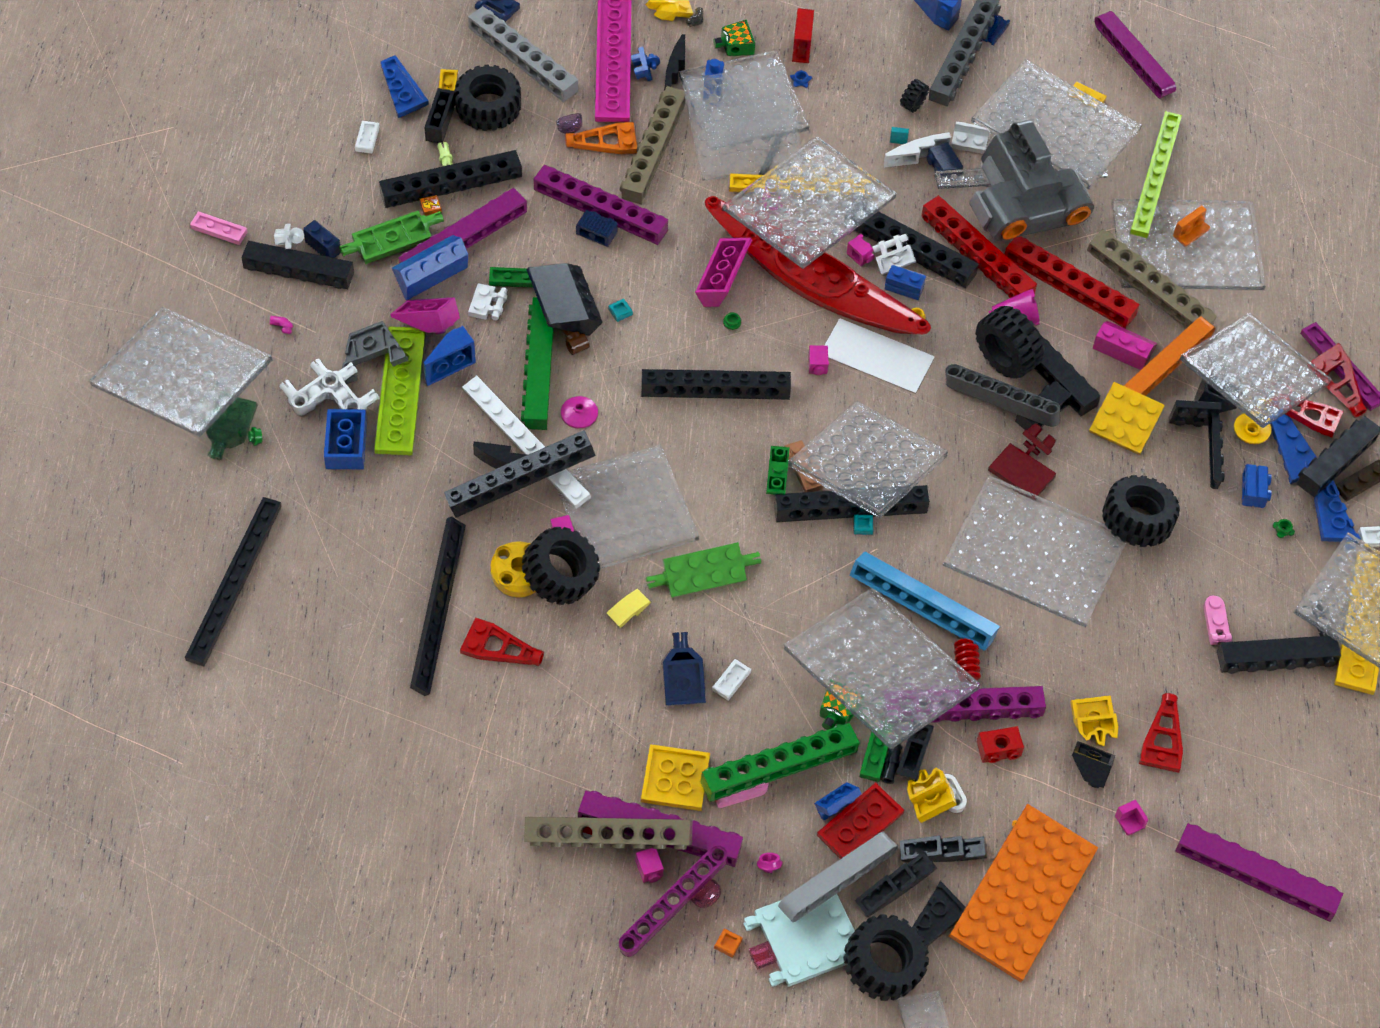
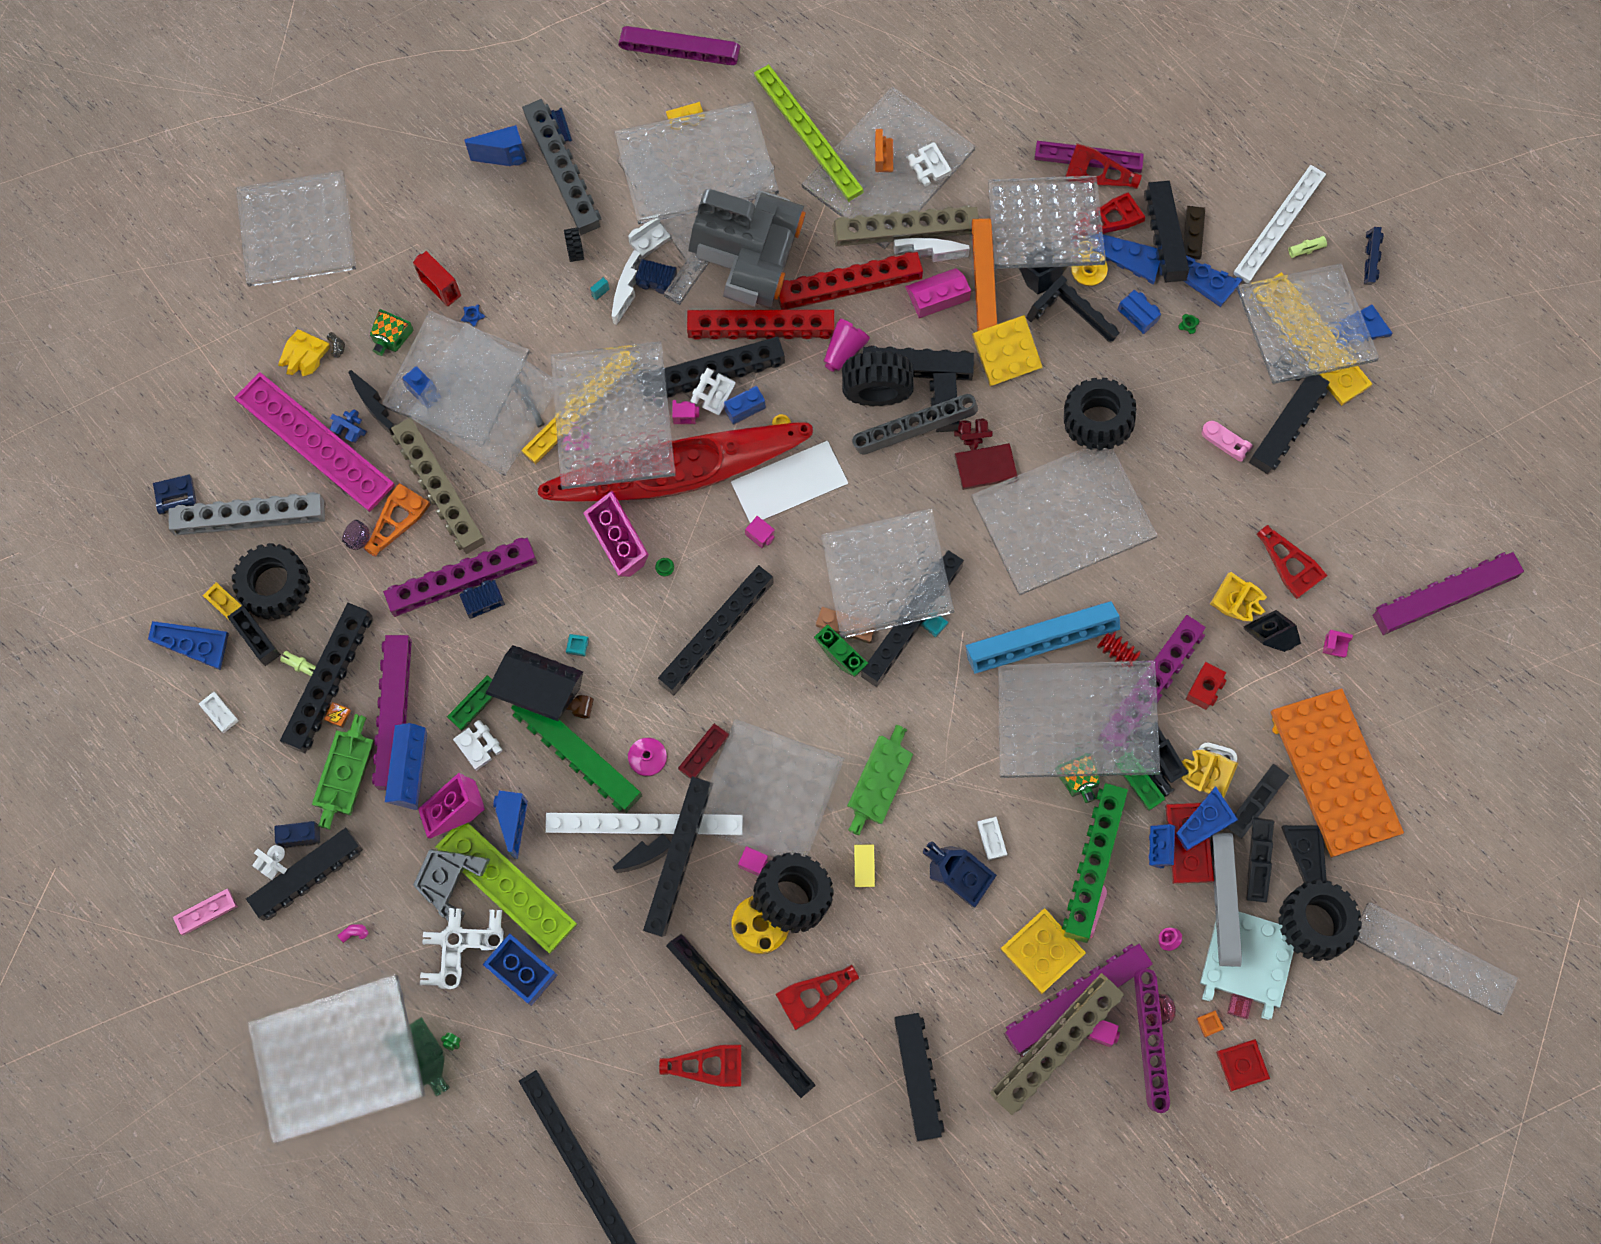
camera: 45 degrees left, 15 degrees up
(392, 626) = (730, 1066): none -> red plate
(496, 758) = (918, 1078): none -> black brick
(617, 442) = (703, 751): none -> dark red plate
(716, 991) = (1243, 1065): none -> red tile
(889, 818) = (1206, 821): none -> blue wing
(1157, 318) = (937, 248): none -> white slope
(1222, 266) = (934, 162): none -> white plate

